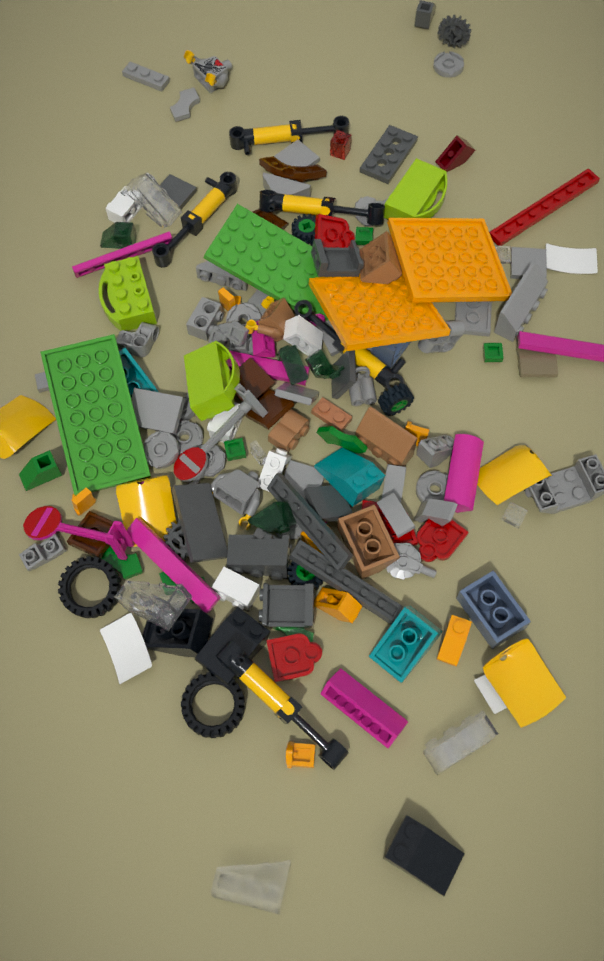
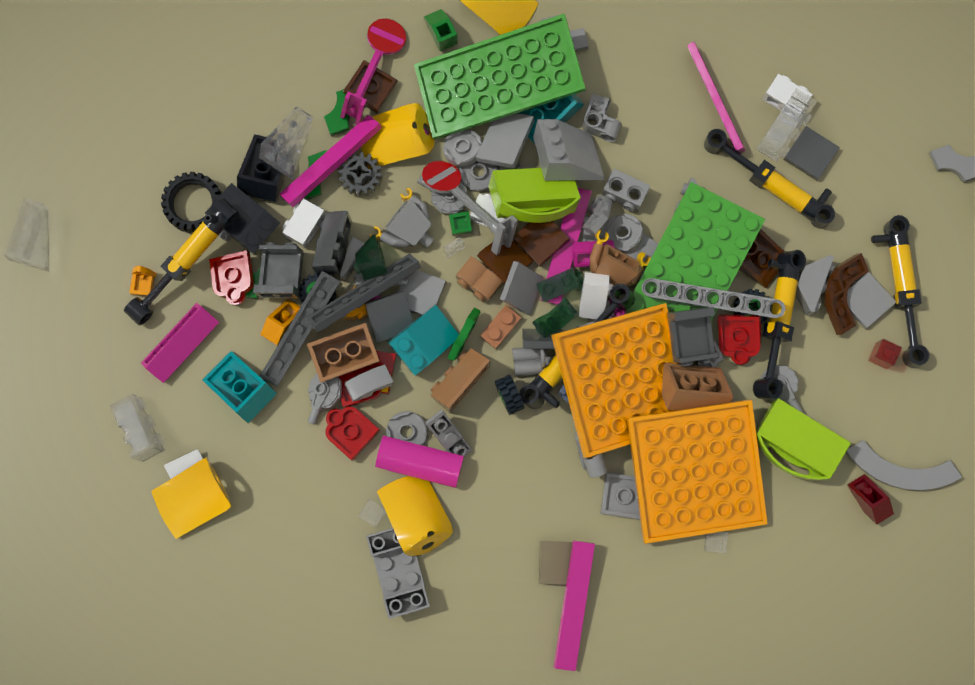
camera: 90 degrees right, 15 degrees up
(43, 553) = (355, 39): light grey slope -> none
(69, 576) = (303, 66): black tyre -> none
(83, 501) = (406, 72): light orange tile -> none
(118, 235) = (743, 93): clear green slope -> none
(126, 294) = (660, 105): lime piece -> none
(126, 647) = (252, 122): white sticker -> none
(171, 359) = (566, 152): none -> light grey slope
(199, 522) = (372, 185): dark grey tile -> none
(227, 299) = (649, 218): light orange tile -> none
(274, 464) = (438, 263): white bracket -> none
(303, 252) = (723, 298): none -> light grey beam
(364, 235) = (742, 375): green plate -> none
(391, 162) = (888, 410): dark grey plate -> none
(394, 481) = (411, 387): light grey slope -> none
(419, 432) = (468, 413): light orange tile -> none
(424, 855) = (44, 387): black slope -> none
(435, 134) = (898, 476): none -> light grey tile
(436, 510) = (372, 426): light grey slope -> none
(454, 640) = (239, 434): light orange slope -> none
(493, 352) = (573, 513): green plate -> none
(493, 609) = (264, 474): sand blue brick -> none
(521, 303) = (636, 553): light grey slope -> none
(523, 257) = (701, 572): light grey tile -> none
(544, 207) = (787, 605): red plate -> none
(571, 259) = (708, 627): white sticker -> none

